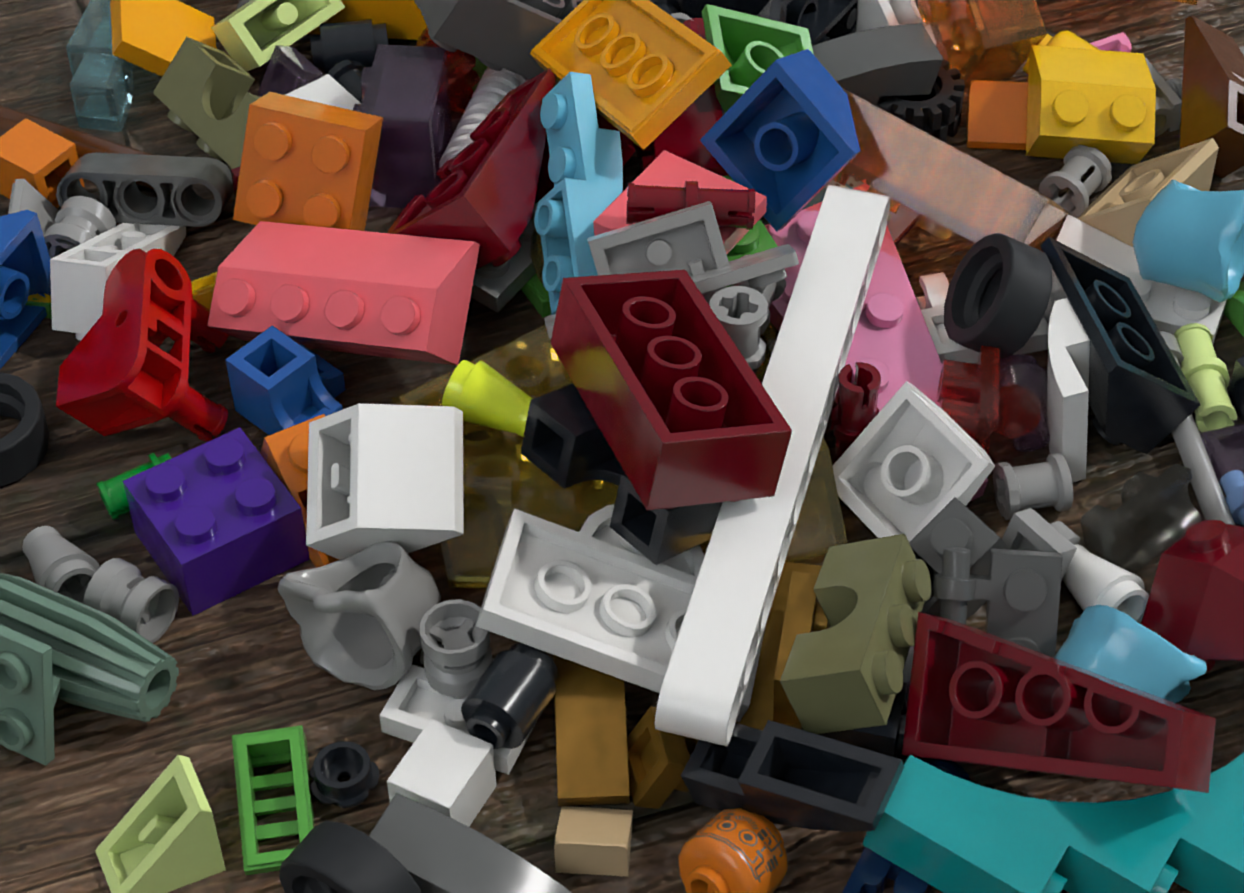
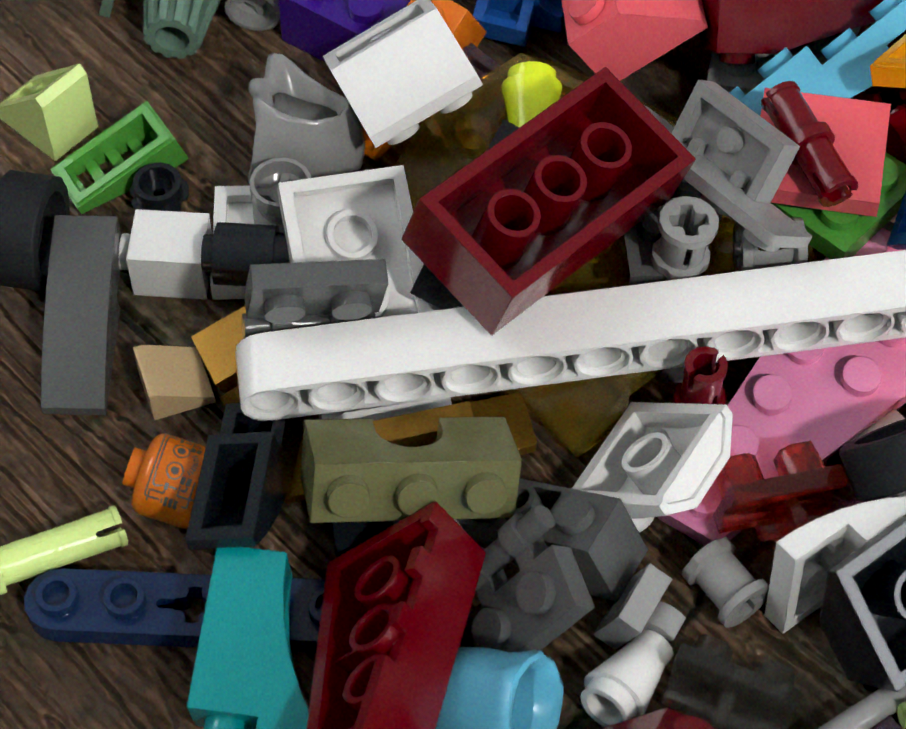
camera: 65 degrees right, 10 degrees up
(656, 622) = (312, 294): none -> dark grey plate

